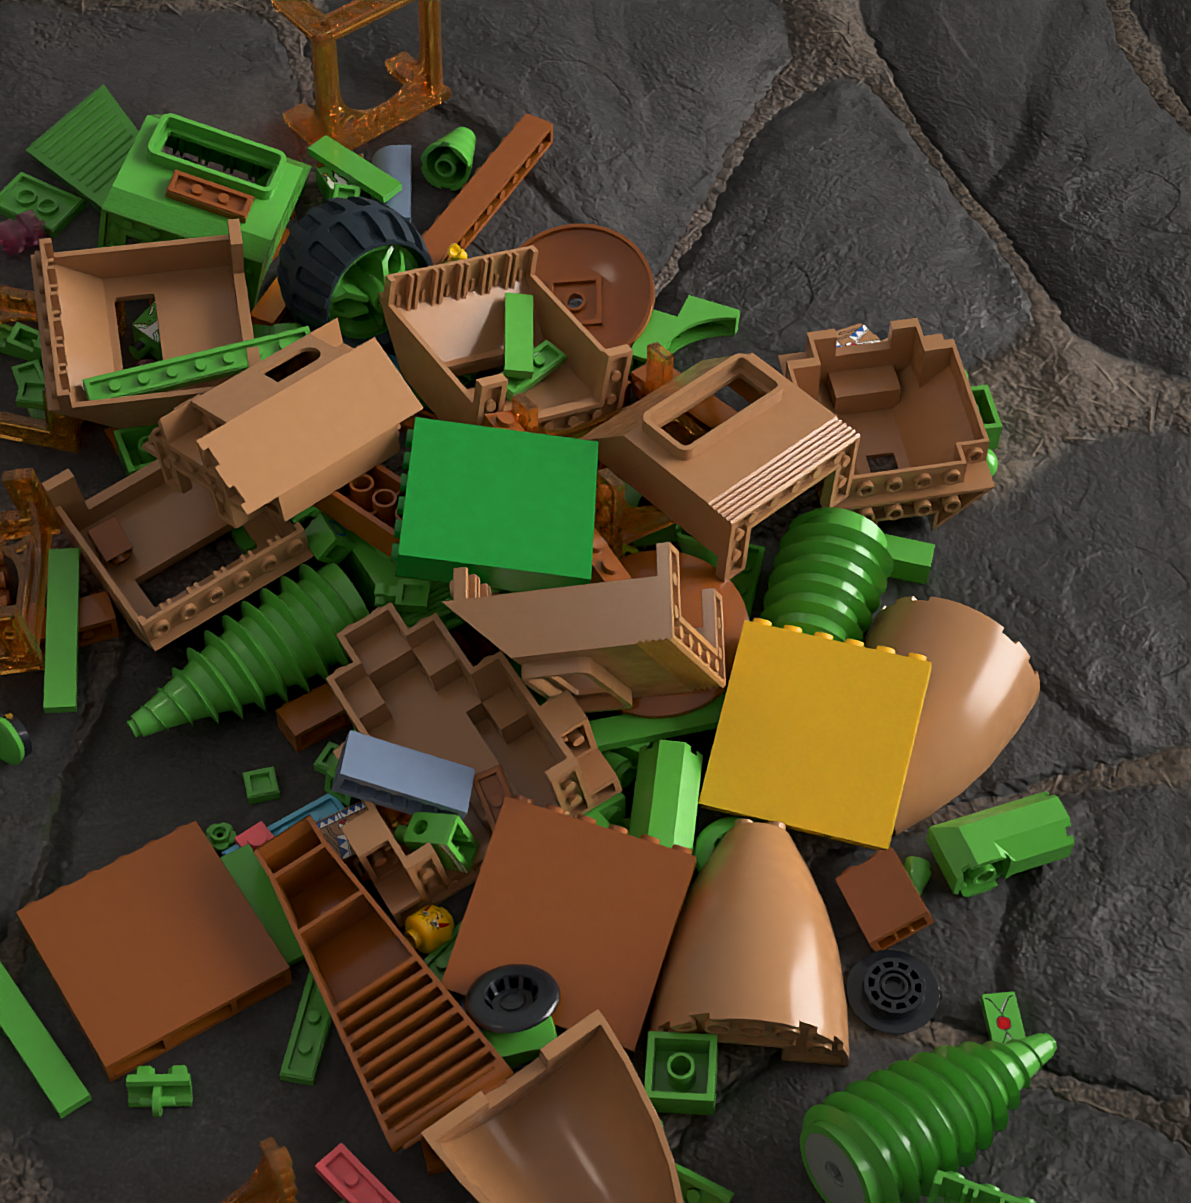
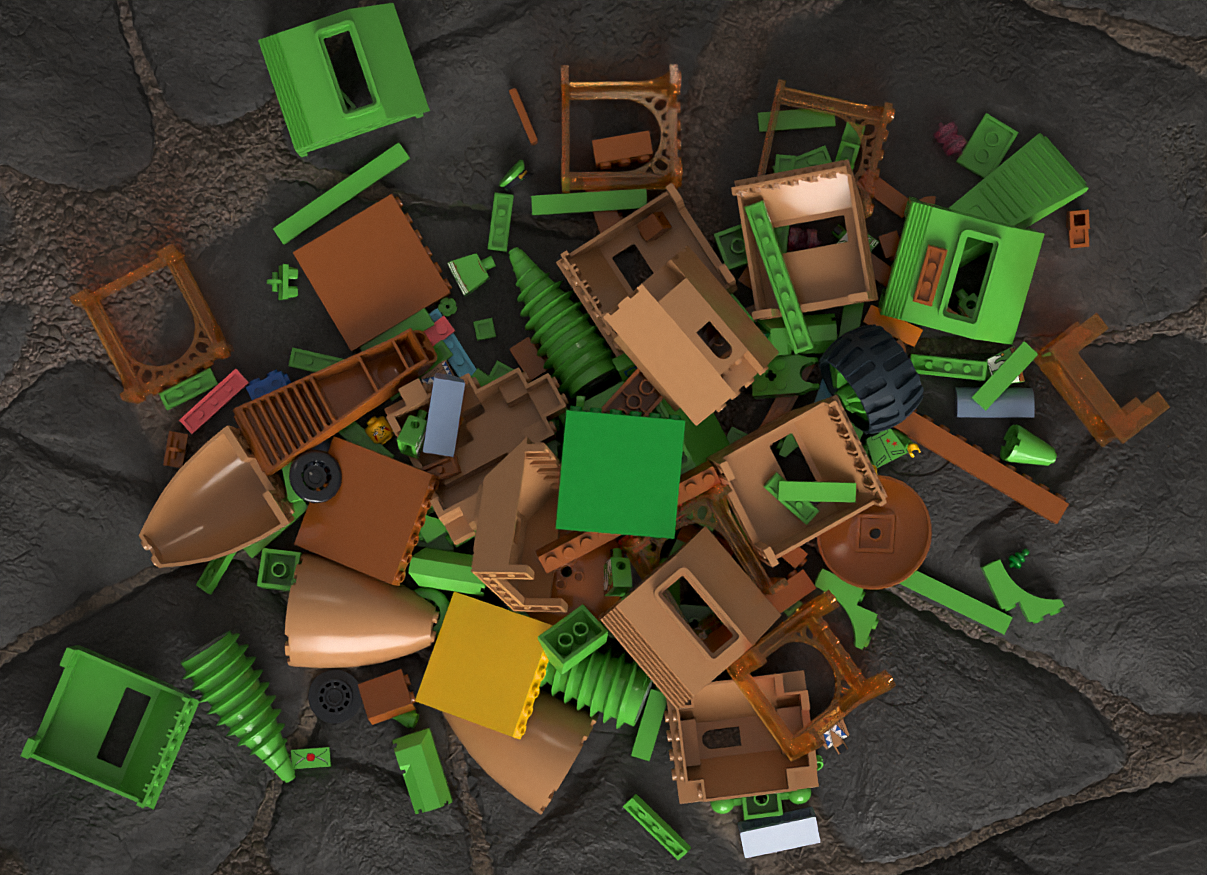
camera: 95 degrees right, 35 degrees up
(83, 766) = (500, 222): none -> bright green tile
(149, 104) = (1078, 224): none -> dark orange brick
(165, 801) = (471, 272): none -> bright green torso
(351, 1109) = (273, 382): none -> blue brick
(602, 170) = (1019, 557): none -> green hair
(651, 173) = (1008, 593): none -> bright green arch
(653, 529) = (617, 574): none -> bright green torso
(669, 219) = (958, 601): none -> bright green tile
(766, 593) = (573, 639): none -> bright green slope
(801, 313) = (861, 689): none -> clear orange arch
(1023, 421) = (779, 832): none -> brick
(1030, 543) = (657, 827): none -> bright green plate

